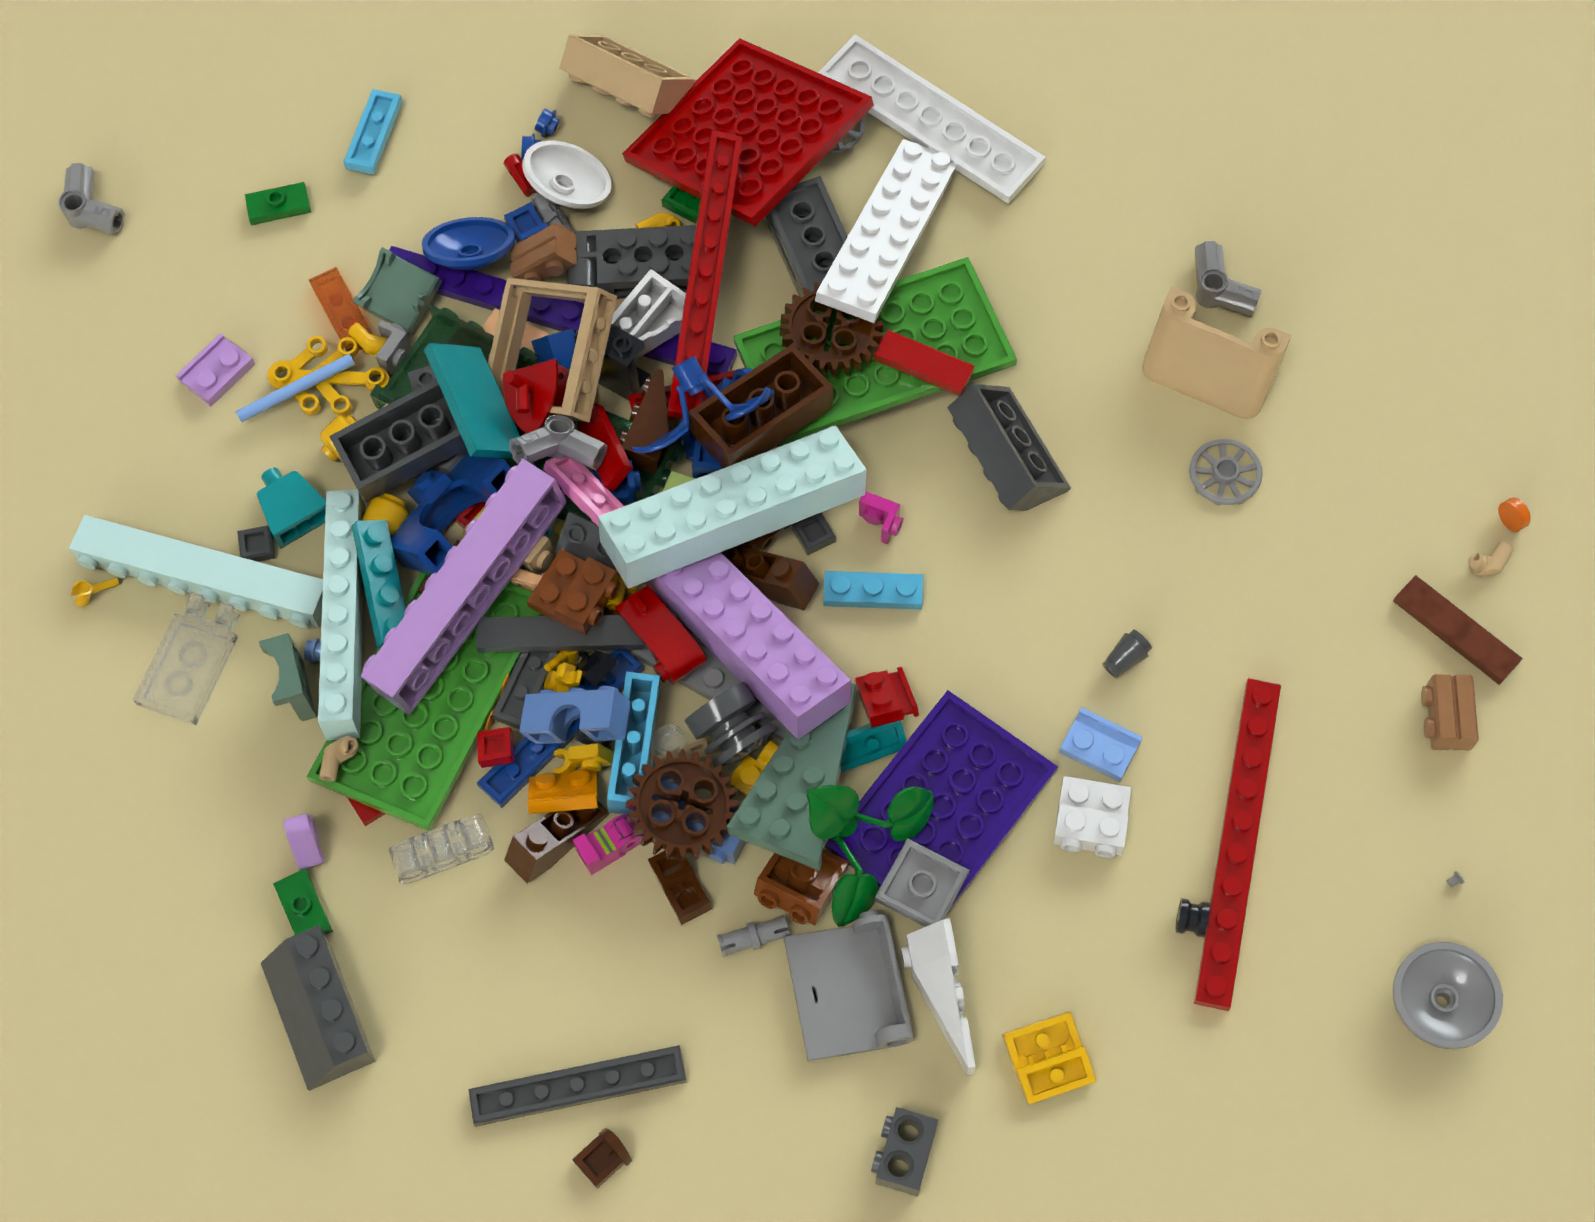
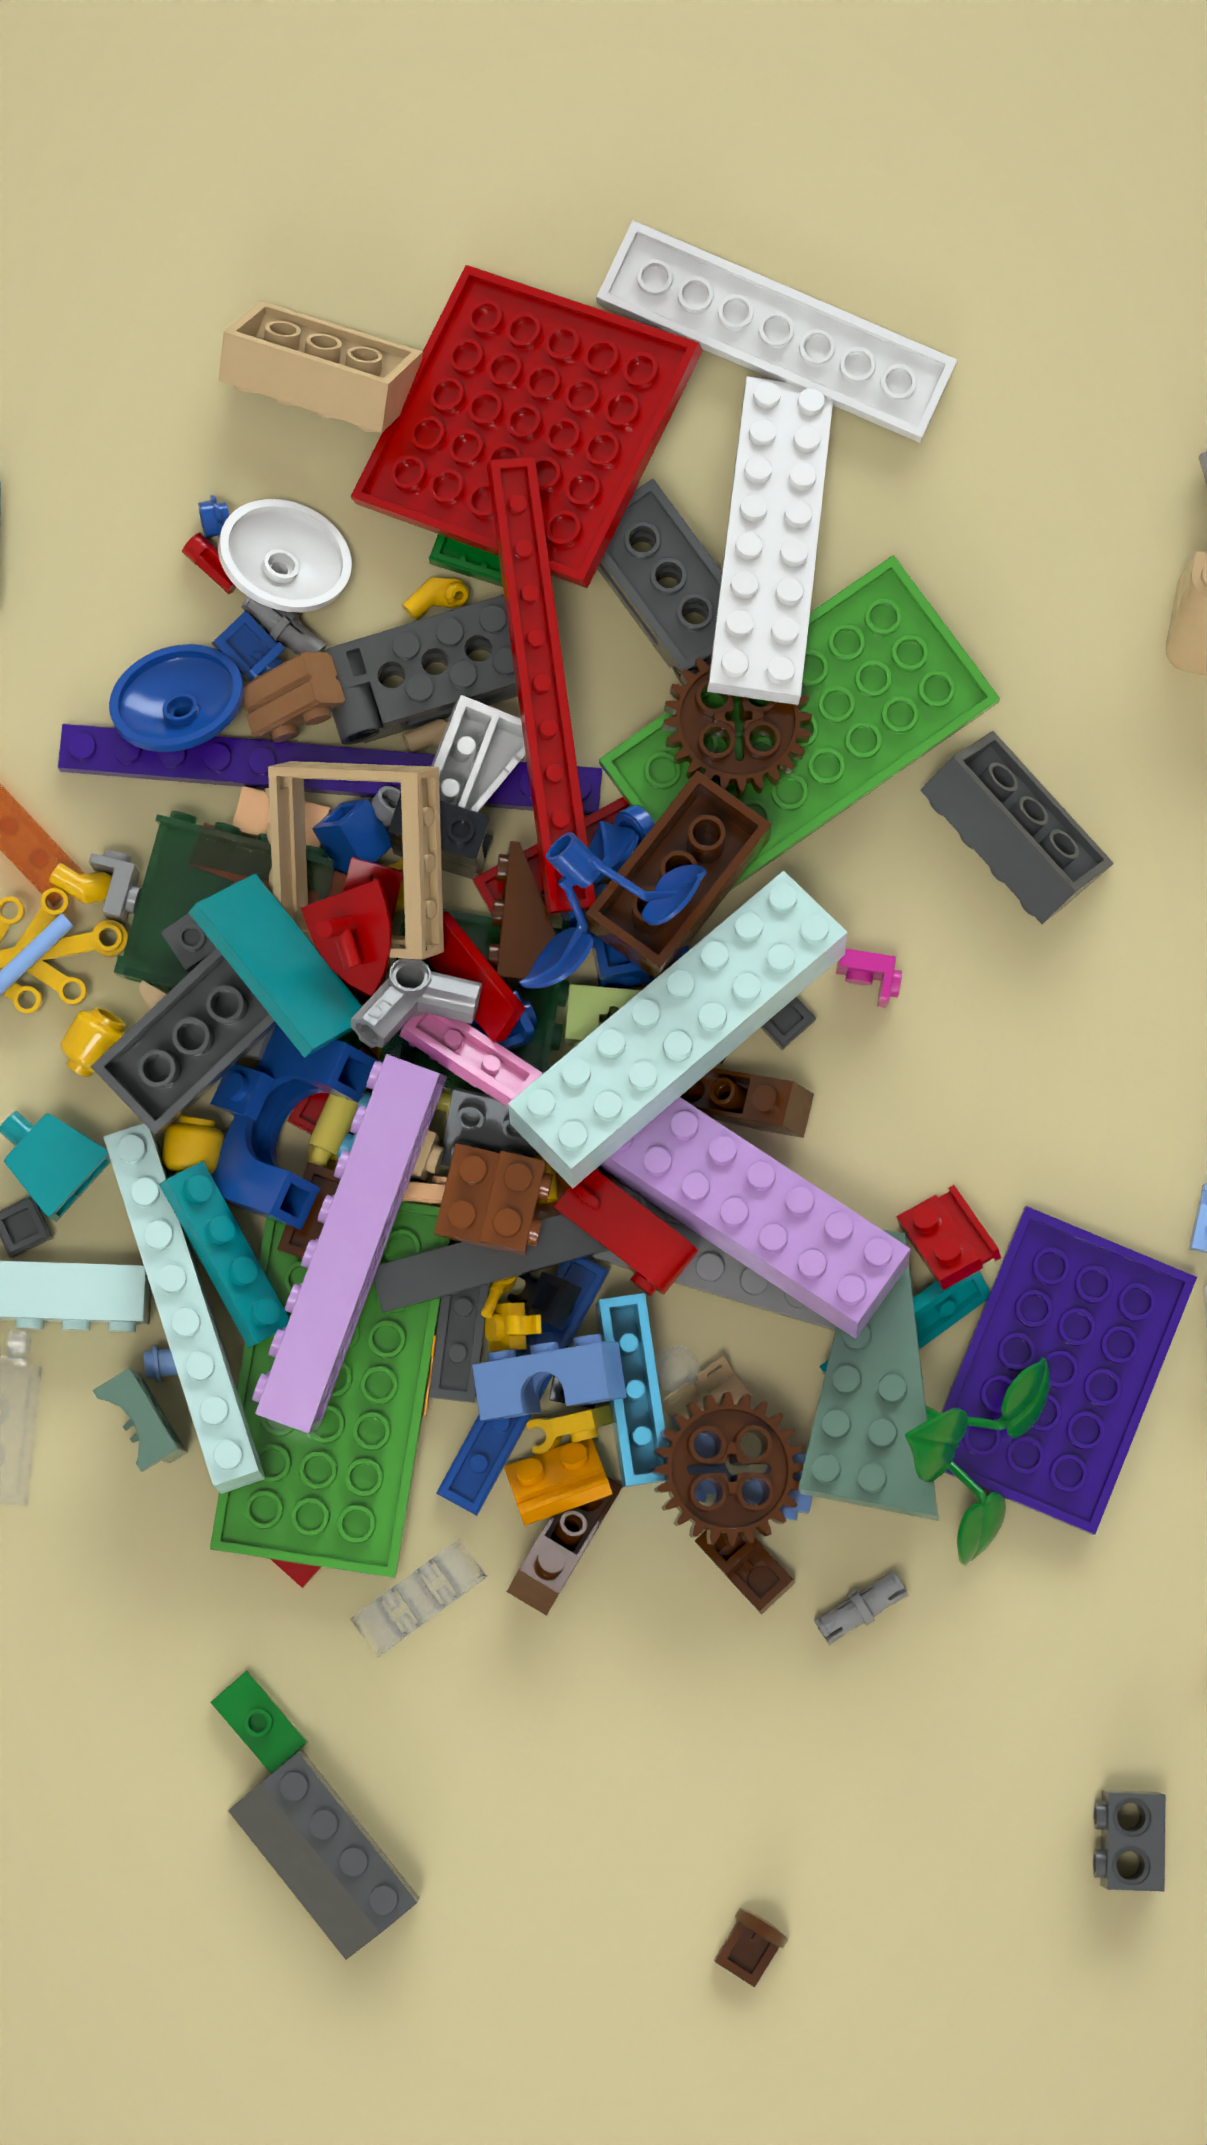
camera: 20 degrees left, 15 degrees up
(304, 840) = (234, 1635): lavender piece -> none
(335, 755) = (241, 1510): tan arm -> none
(398, 291) = (99, 798): sand green piece -> none
(495, 747) = (449, 1442): red plate -> none
(547, 122) = (225, 470): blue plate -> none
(577, 1086) = (690, 1863): dark grey tile -> none
(606, 843) = (636, 1532): dark pink leg -> none
(730, 725) = (761, 1342): dark grey wheel -> none
(750, 769) = (799, 1388): yellow plate -> none
(798, 887) = (905, 1539): dark orange plate -> none
(855, 987) = (1011, 1641): light grey door -> none
(873, 590) = (886, 1081): medium azure plate -> none
(921, 884) = (1064, 1488): light grey tile -> none
(924, 362) = (877, 739): red tile -> none
(933, 967) = (1109, 1596): white wedge -> none

